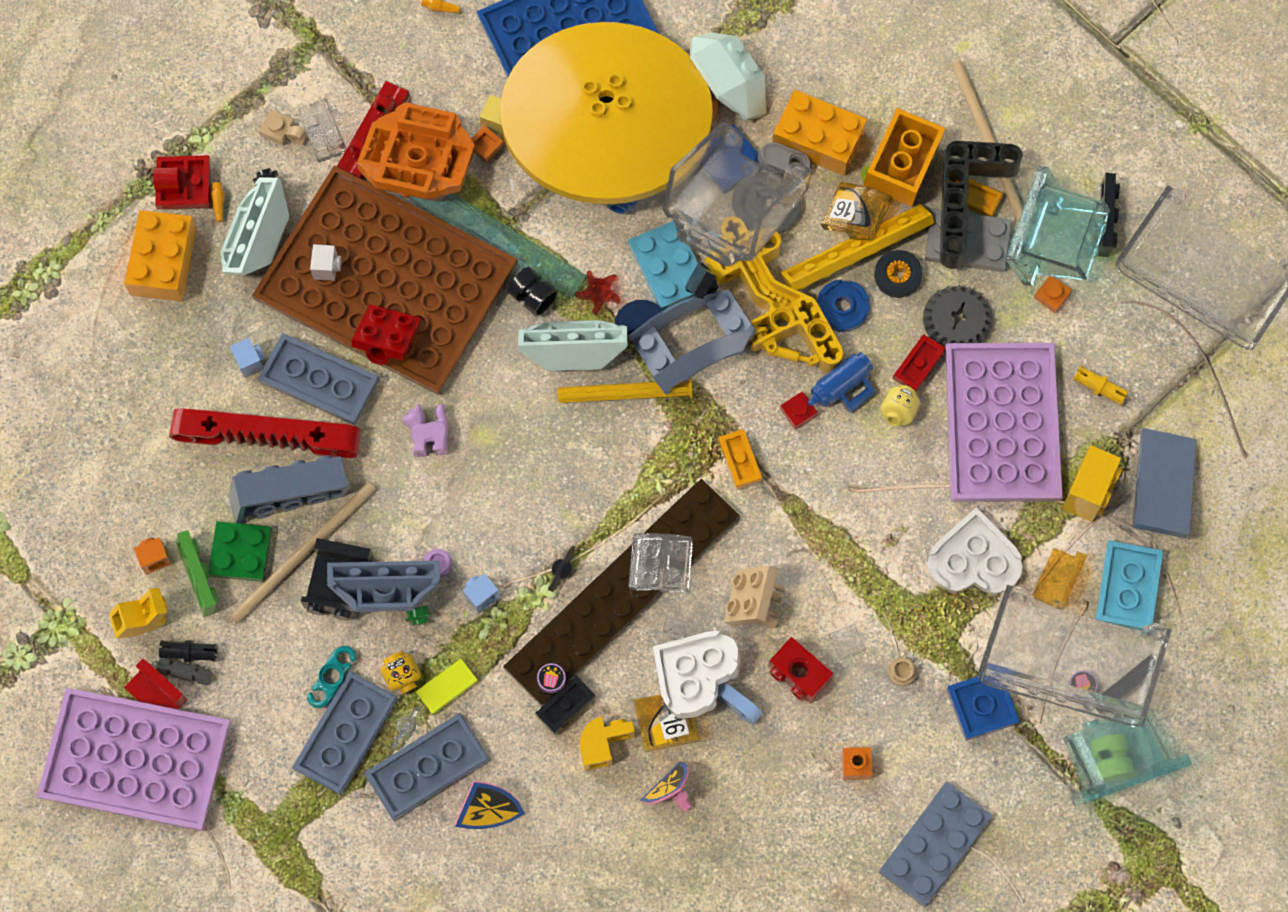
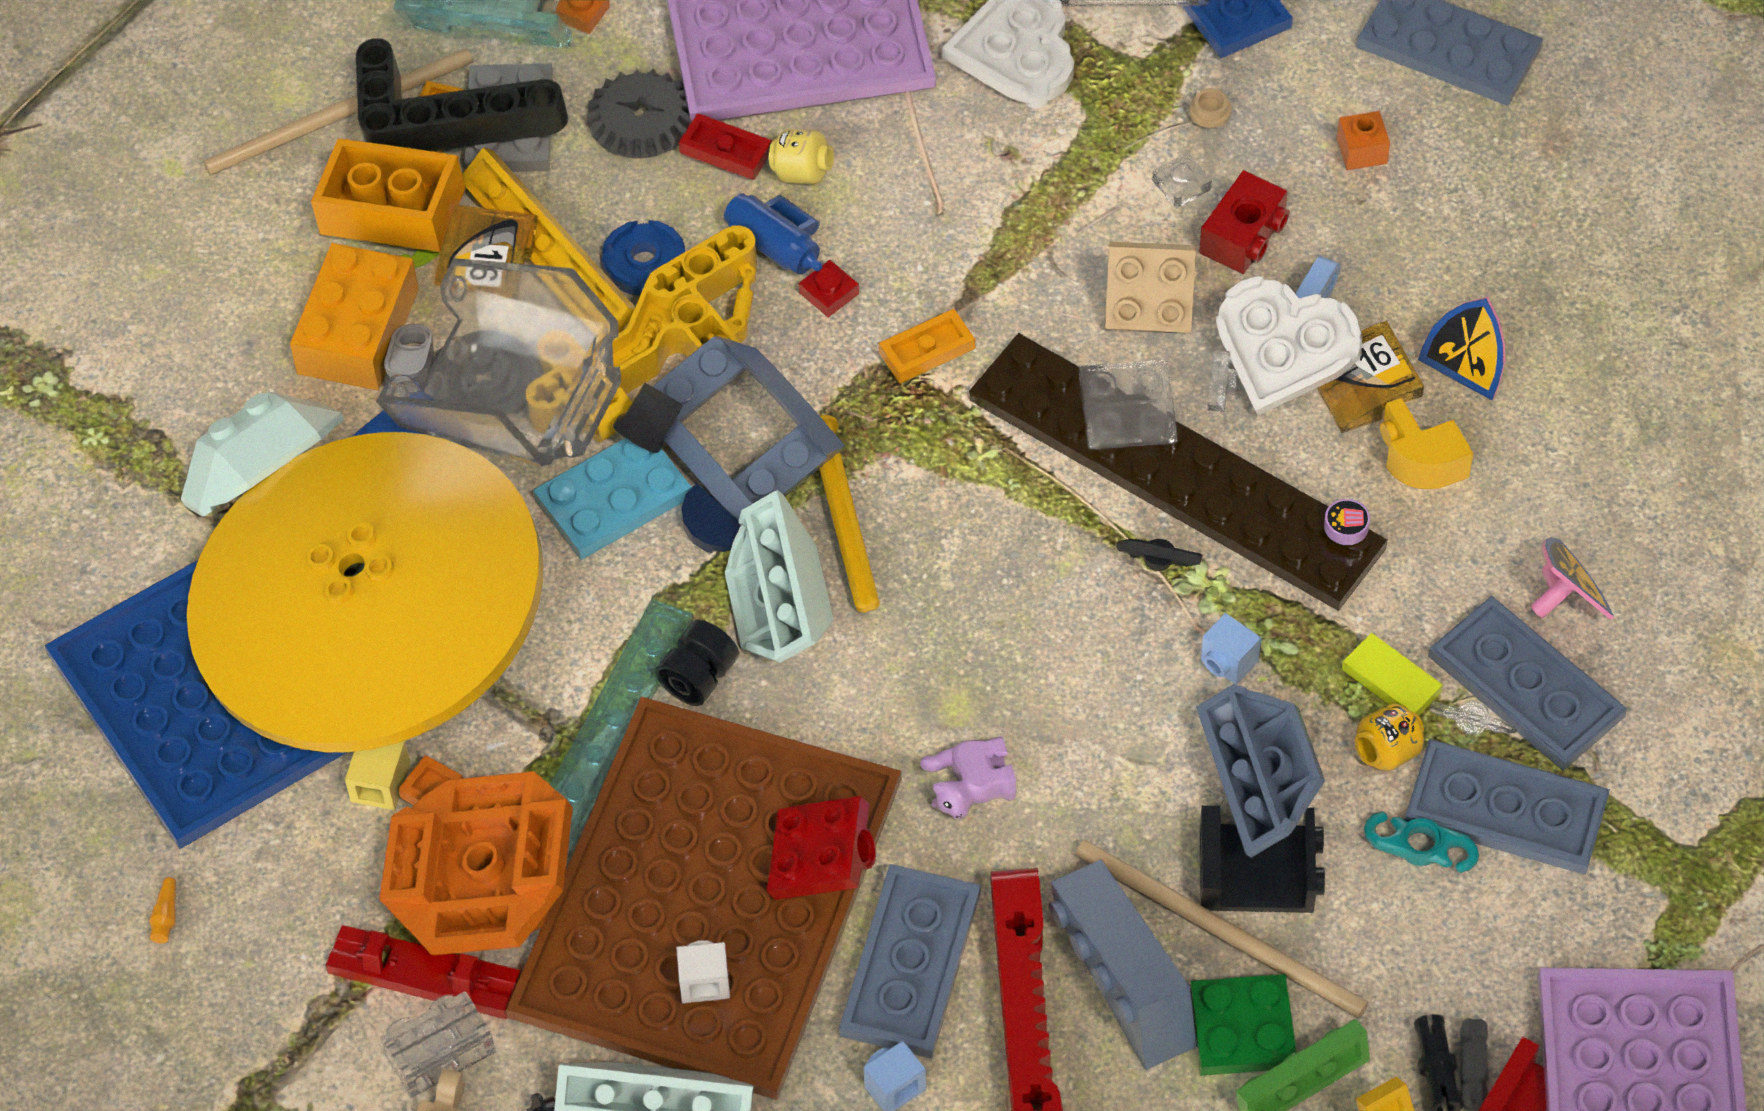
camera: 100 degrees left, 15 degrees down
(444, 560) = (1186, 729): lavender tile -> none
(565, 705) = (1390, 512): black plate -> none
(599, 291) = (676, 579): clear red animal -> none
(902, 262) = (587, 177): black bush -> none

